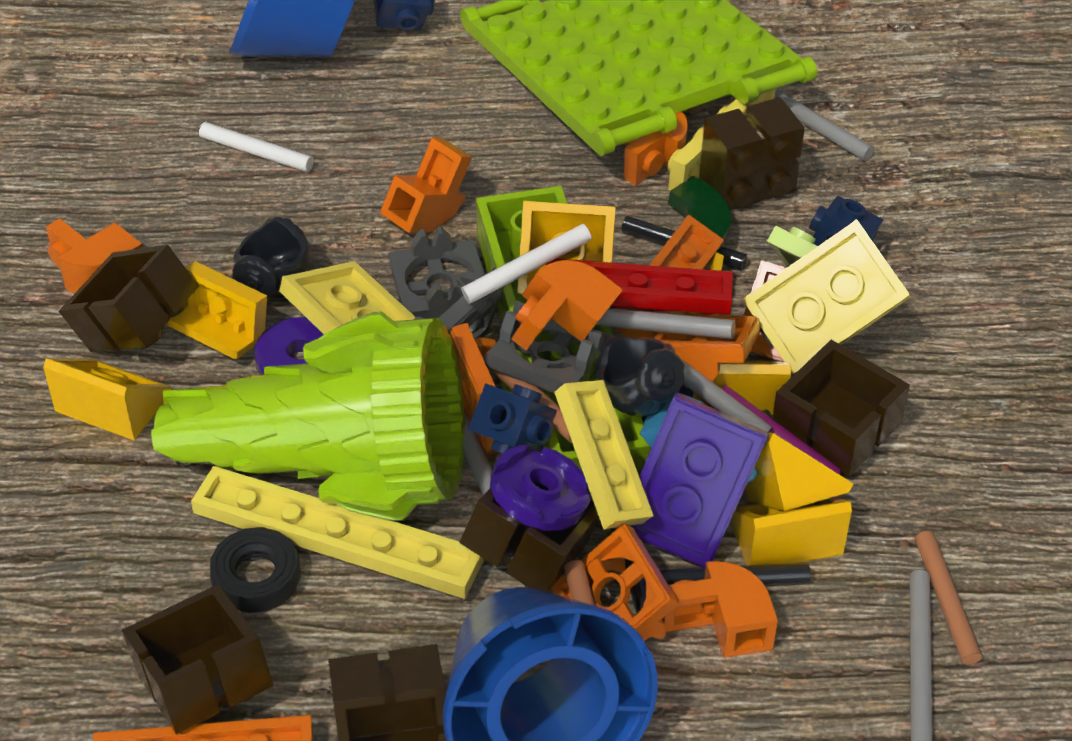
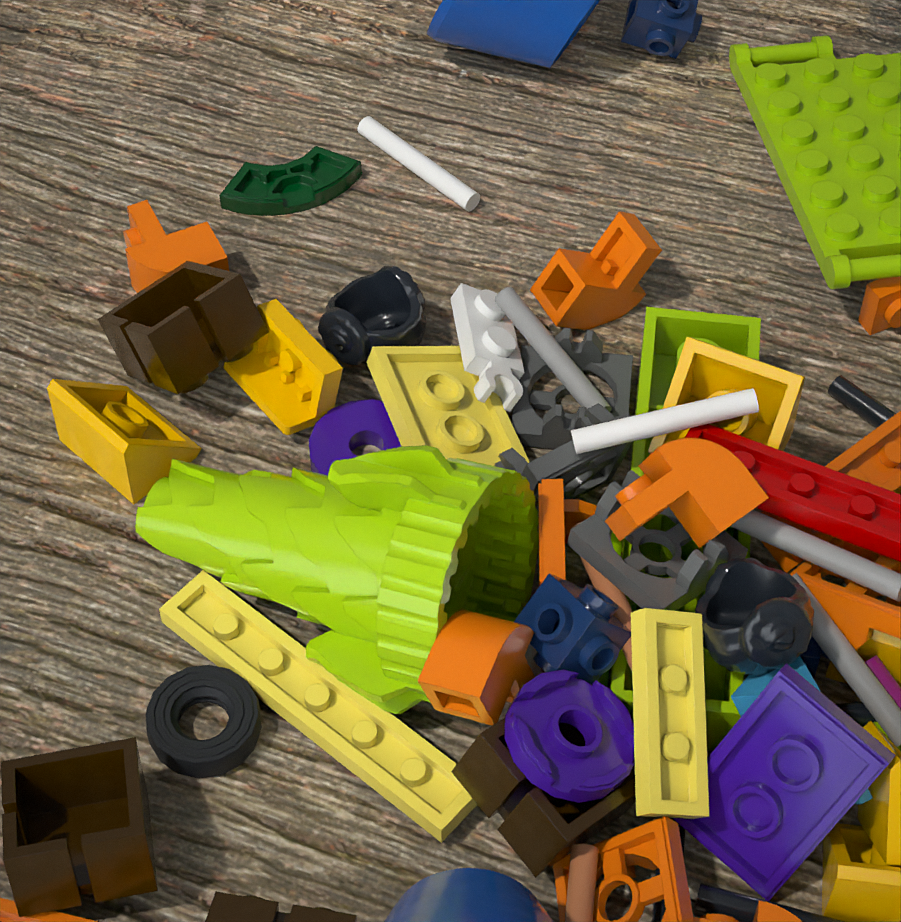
camera: 20 degrees right, 5 degrees up
(164, 186) = (290, 186): none -> dark green tile
(364, 255) = (488, 345): none -> white plate
(411, 247) = (549, 349): none -> light grey bar
(458, 459) = (476, 666): none -> orange brick

